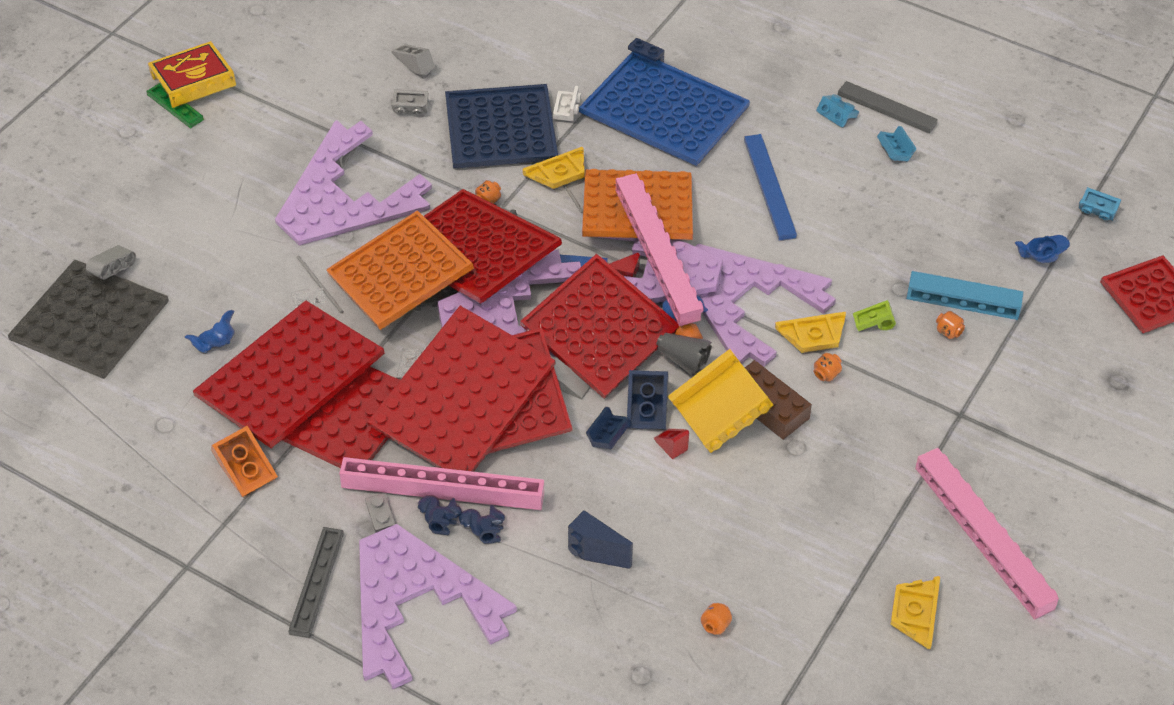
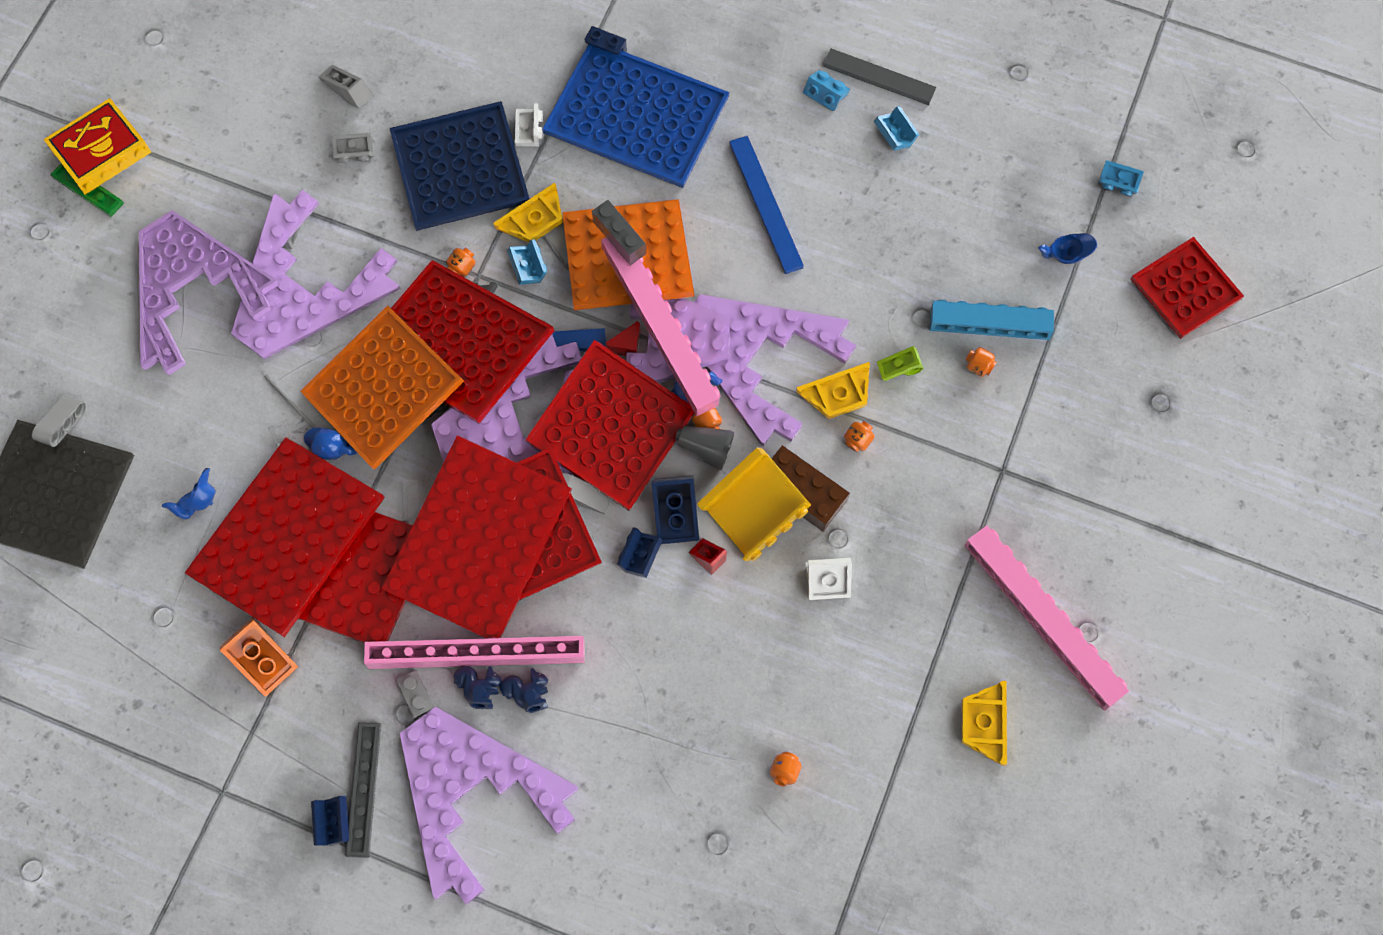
camera: 10 degrees left, 20 degrees up
(240, 156) = (172, 256): none -> lavender wing
(280, 599) = (330, 821): none -> dark blue bracket
(344, 309) = (327, 443): none -> blue hair
(547, 201) = (527, 263): none -> dark azure bracket
(598, 542) = (647, 700): dark blue slope -> none
(632, 171) = (619, 232): none -> dark grey brick
(782, 470) = (829, 578): none -> white bracket

